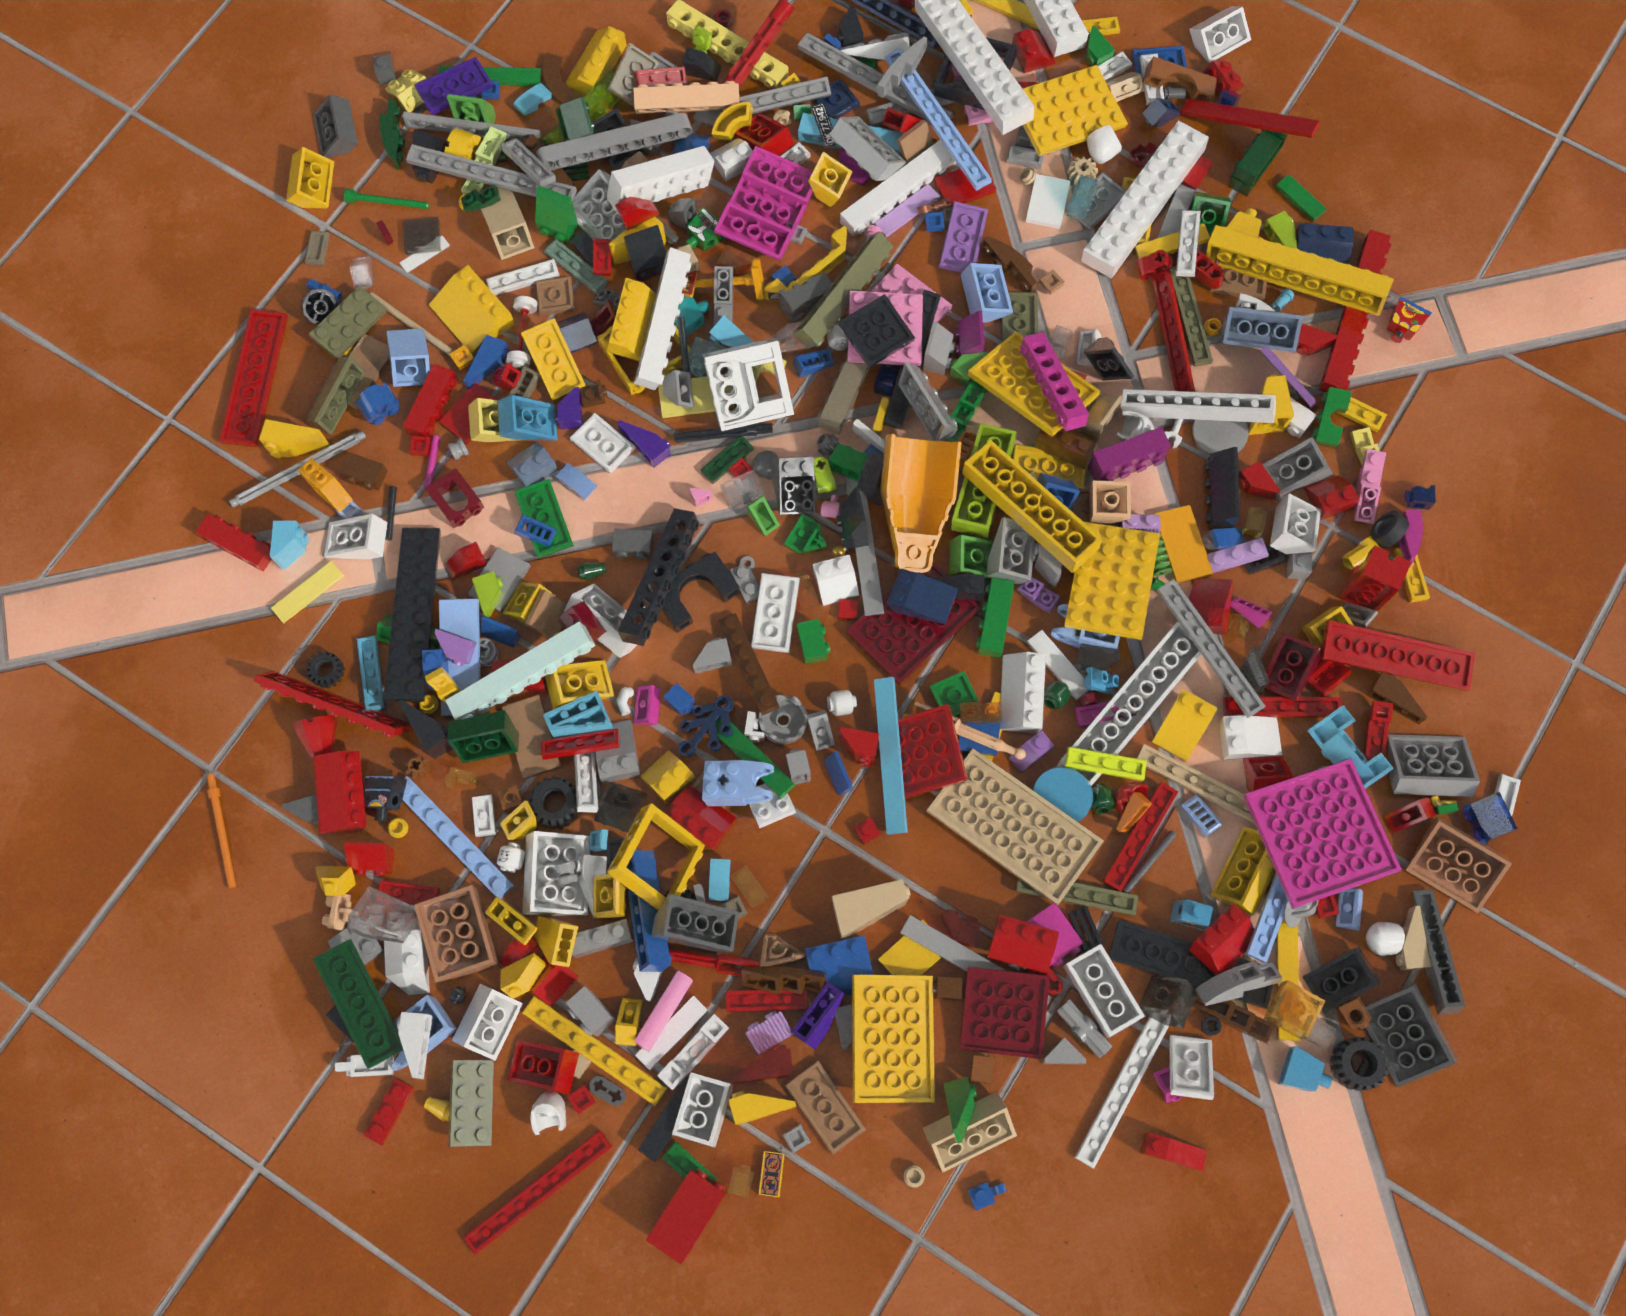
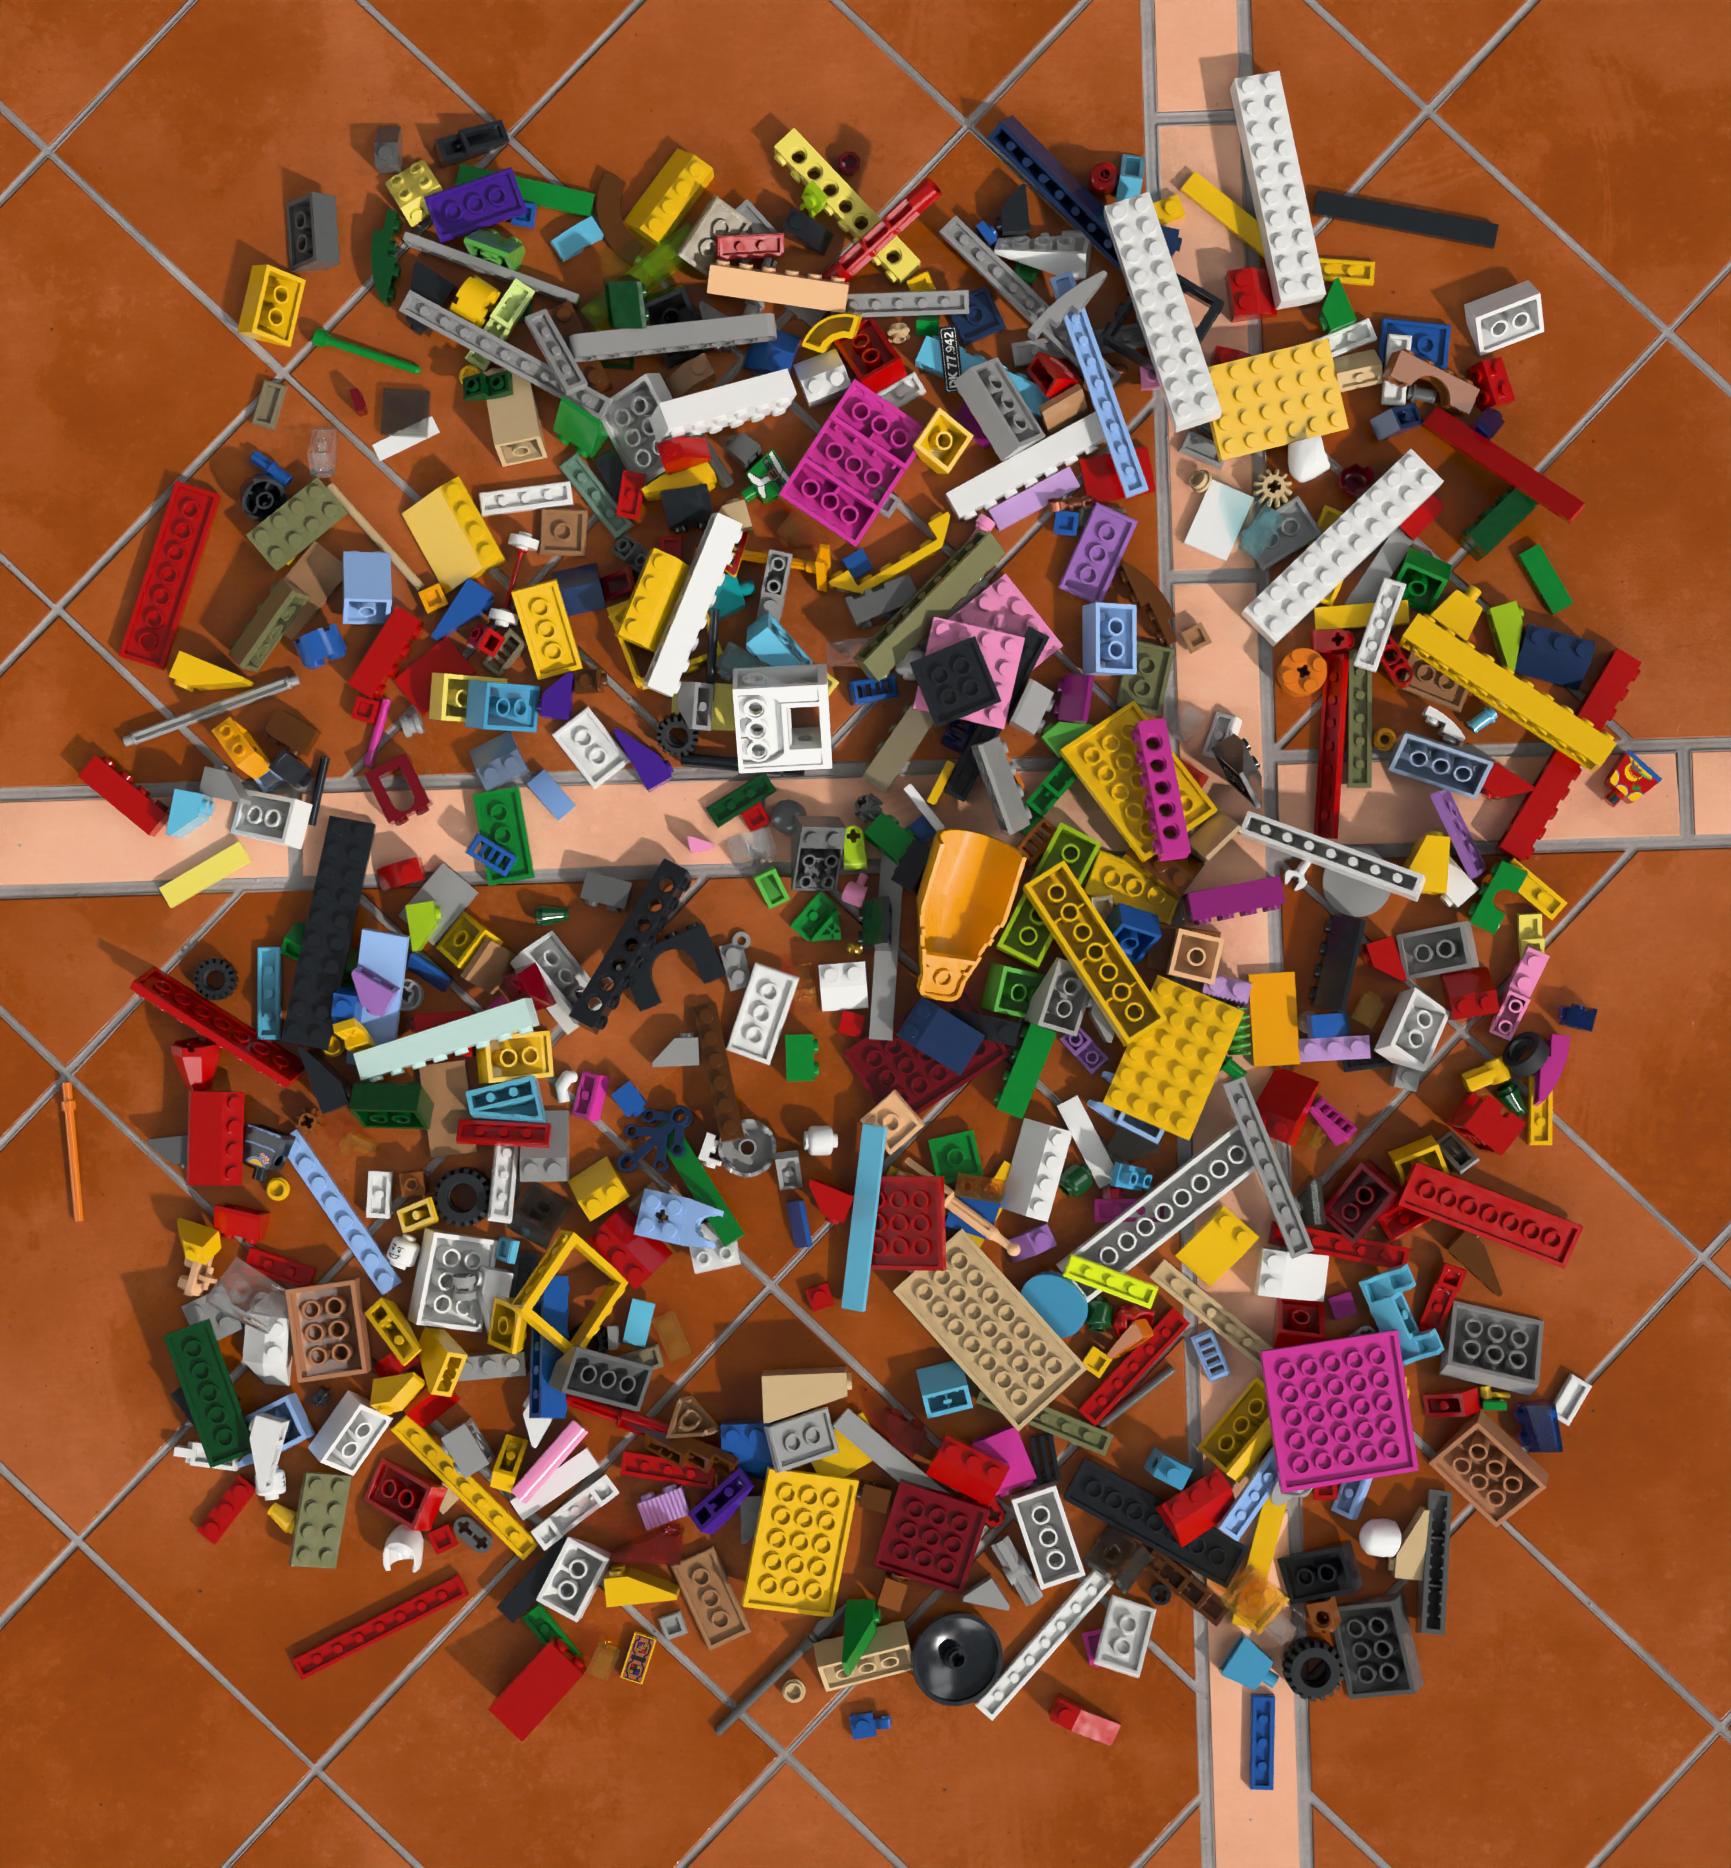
camera: 10 degrees right, 15 degrees up
(314, 520) = (223, 785): none -> light grey slope
(366, 496) = (291, 769): none -> black slope
(425, 1085) = (278, 1486): none -> white head
(443, 51) = (470, 143): none -> black slope
(668, 429) = (674, 747): none -> black tyre
(798, 766) = (753, 1211): light grey brick -> none
(876, 947) = (801, 1439): none -> light grey tile
(904, 672) = (897, 1117): none -> light nougat tile
(928, 1115) = (822, 1629): none -> dark grey piece
(987, 884) = (944, 1389): none -> medium azure slope
(1050, 1116) = (956, 1658): none -> black dish
(1110, 837) = (1096, 1361): none -> yellow plate
(1134, 425) = (1252, 861): white piece -> none
(1138, 289) = (1313, 666): none -> orange brick
(1235, 981) = (1200, 1556): light grey slope -> none
(1298, 755) = (1342, 1305): none -> magenta tile
(1332, 1141) = (1262, 1742): none -> blue tile

